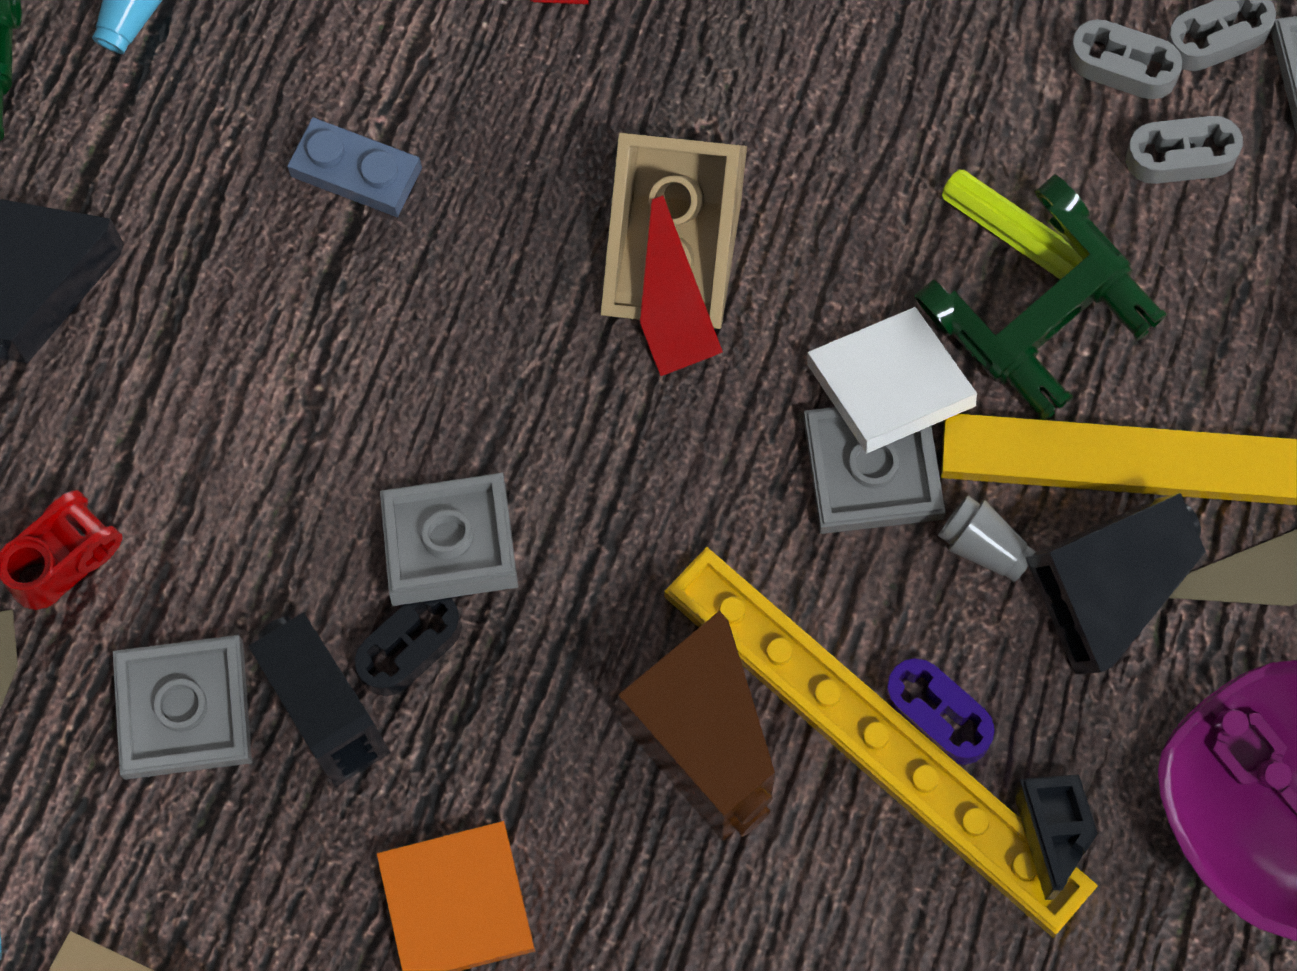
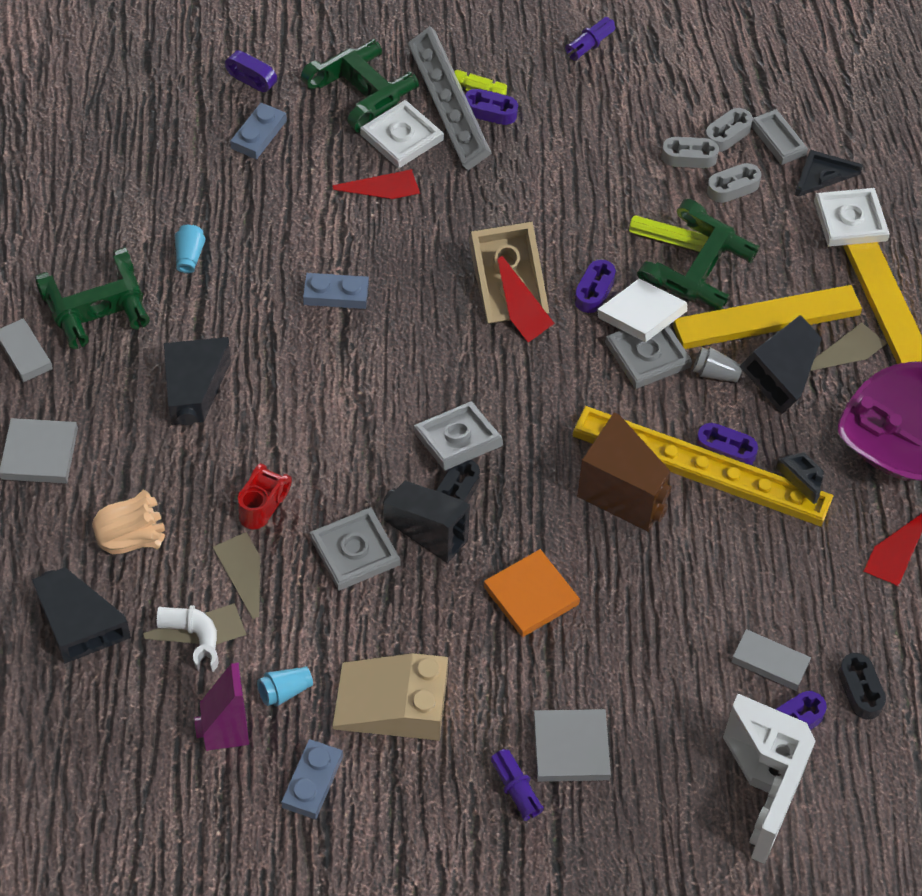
camera: 25 degrees left, 15 degrees down
(819, 287) = (589, 283): none -> dark purple beam

